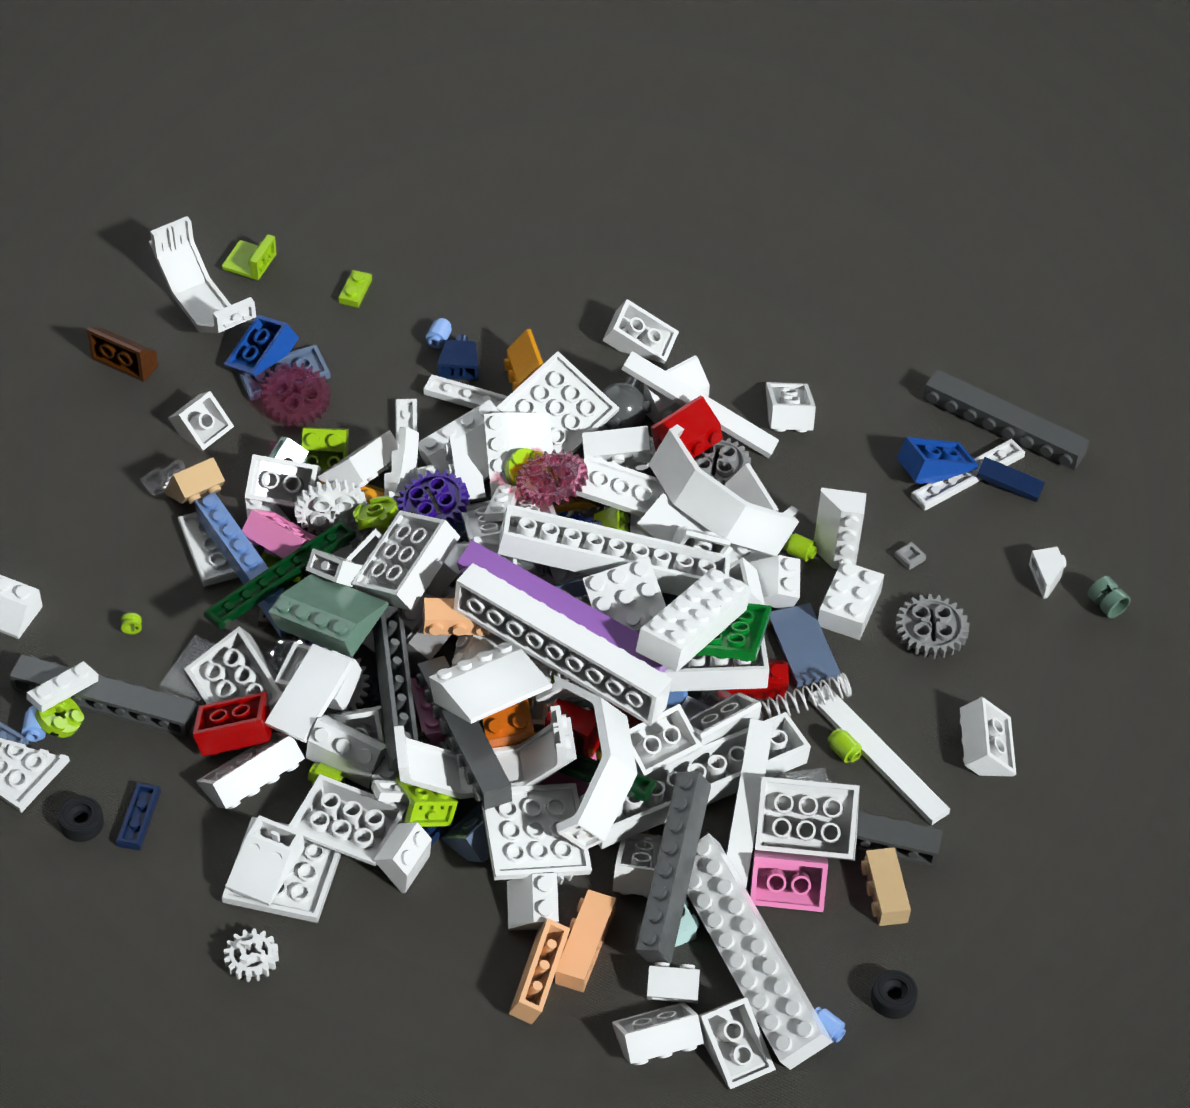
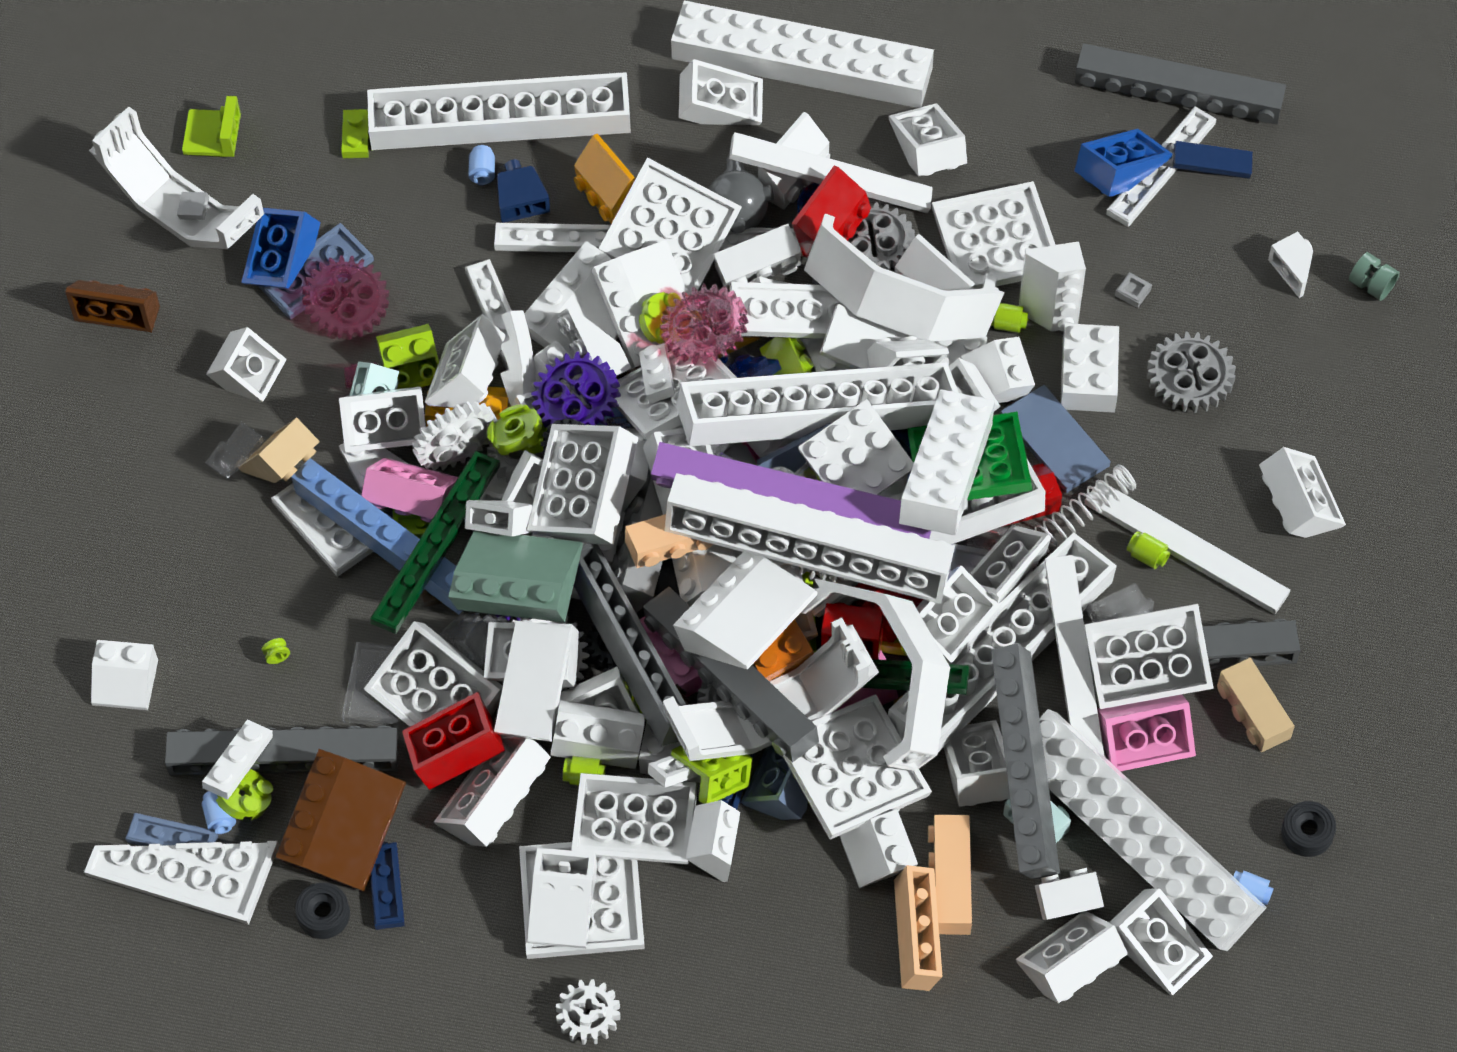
camera: 15 degrees left, 10 degrees up
(121, 754) = (340, 820): none -> reddish brown slope
(211, 302) = (193, 205): none -> light grey tile
(467, 299) = (498, 111): none -> white brick
(718, 322) = (803, 54): none -> white brick
(801, 475) = (992, 231): none -> white plate

